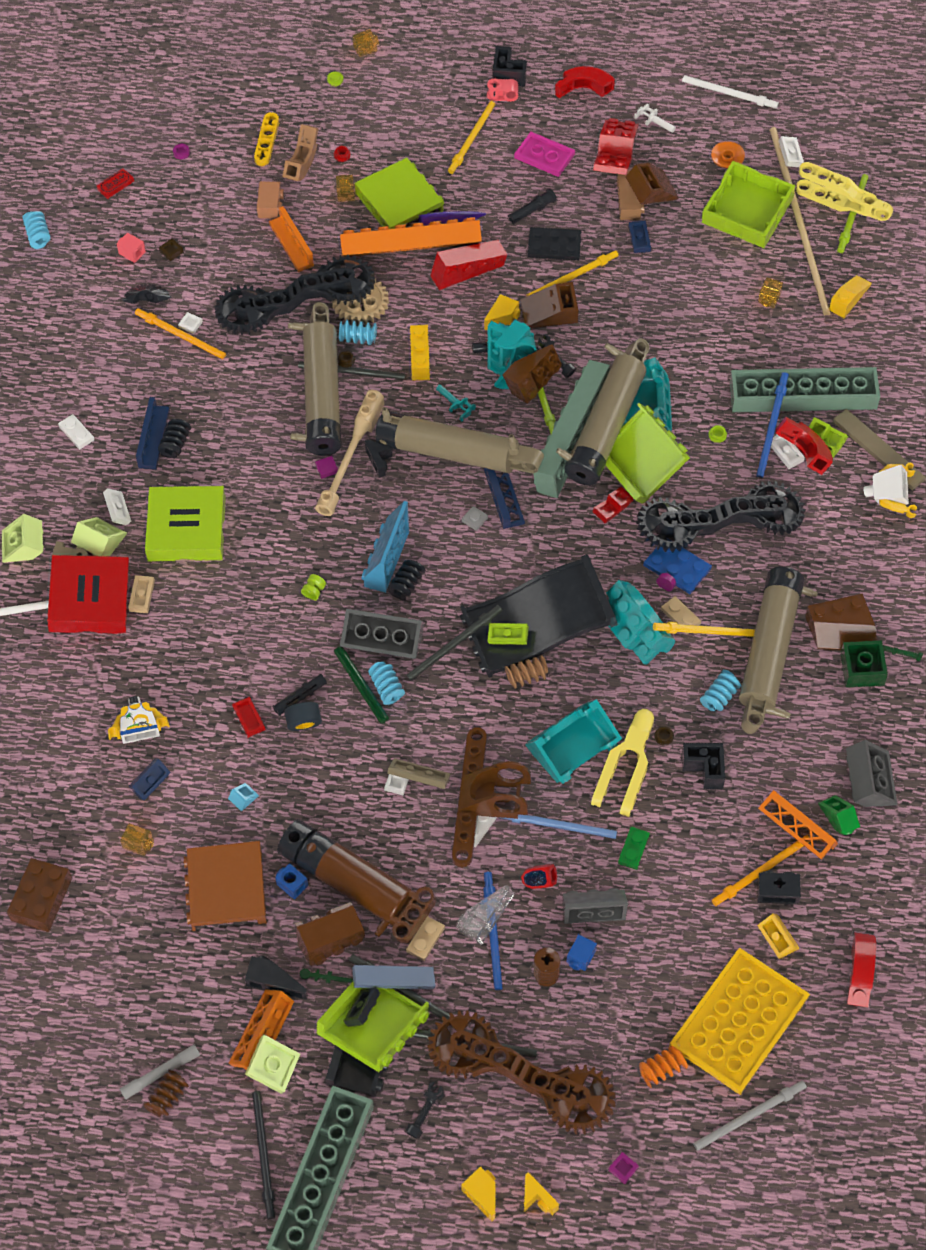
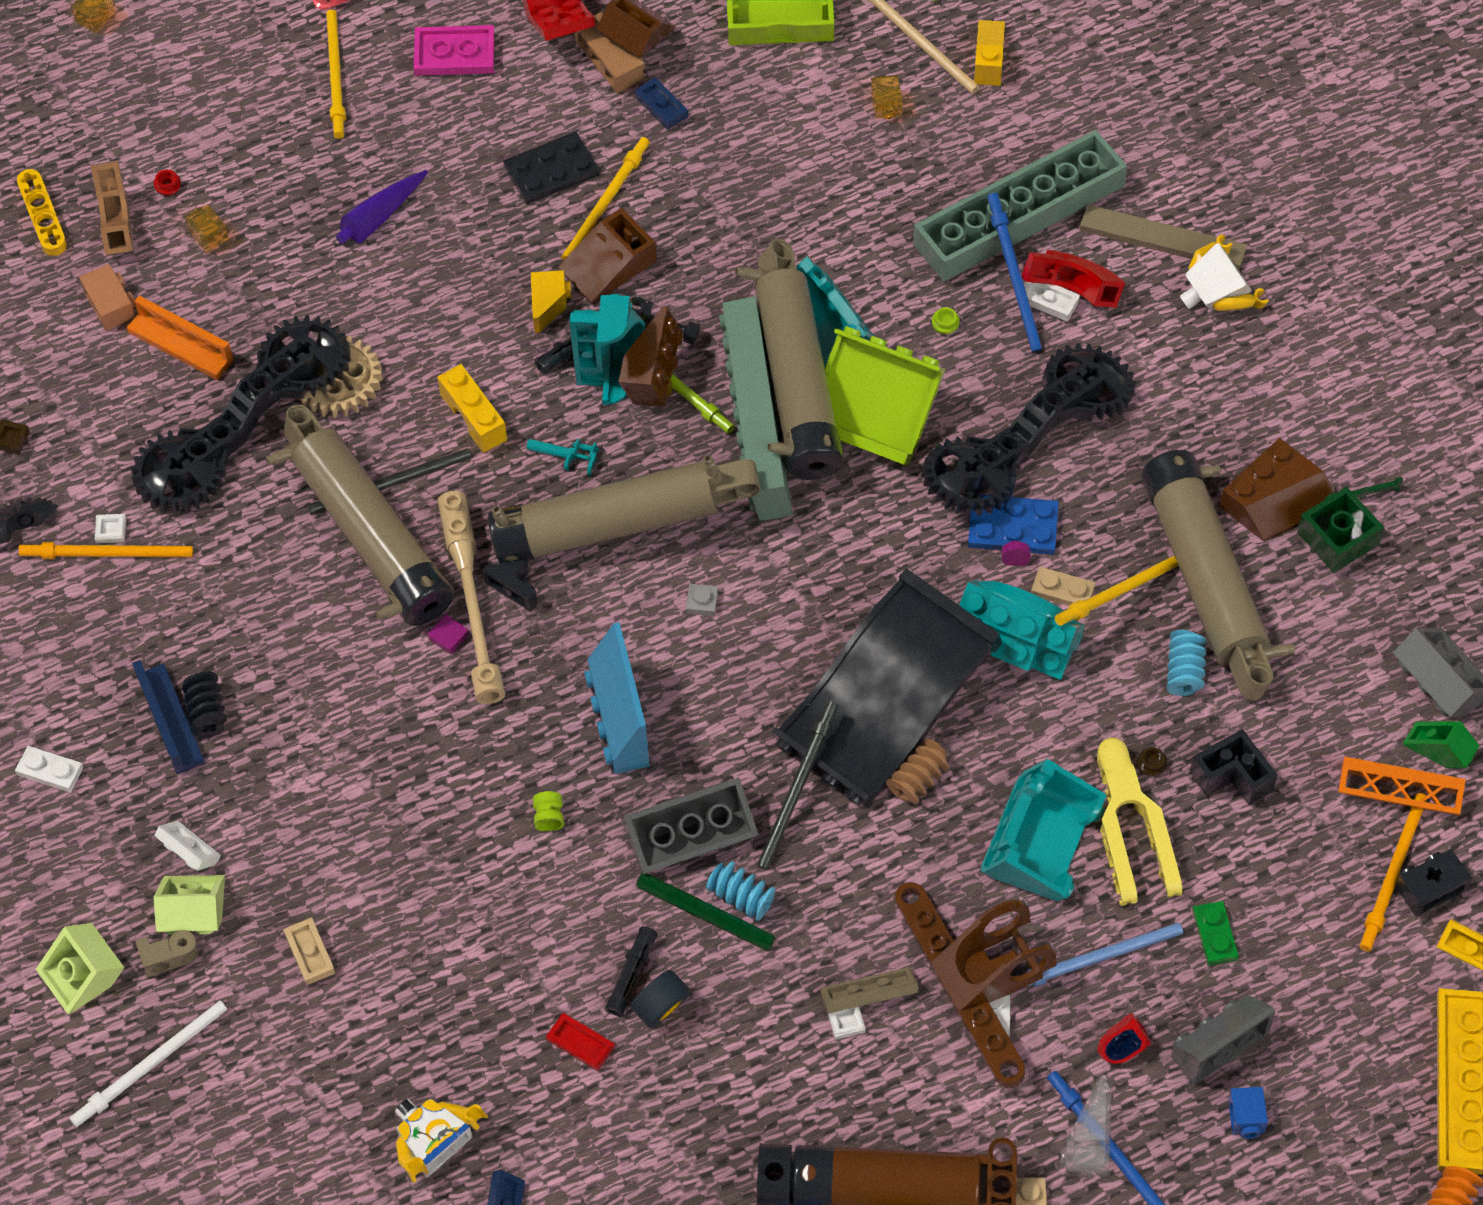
camera: 30 degrees left, 0 degrees up
(88, 594) = (236, 992): red tile -> none
(185, 523) = (305, 816): lime tile -> none
(242, 796) = (648, 1157): medium azure slope -> none
(335, 78) = (83, 80): lime plate -> none
(346, 359) = (375, 468): dark brown plate -> none
(357, 332) = (366, 421): medium azure piece -> none
(398, 194) = (290, 204): lime panel -> none
(405, 579) = (669, 732): black piece -> none
(410, 238) = (350, 257): orange brick -> none
(466, 262) = (452, 251): red wedge -> none
(499, 498) = (719, 556): dark blue fence -> none
(507, 633) = (864, 733): lime plate -> none
(538, 202) = (491, 123): black pin -> none
(546, 966) = (1220, 1155): reddish brown piece -> none
(615, 503) = (874, 486): red slope -> none
(833, 438) = (1093, 249): lime slope -> none

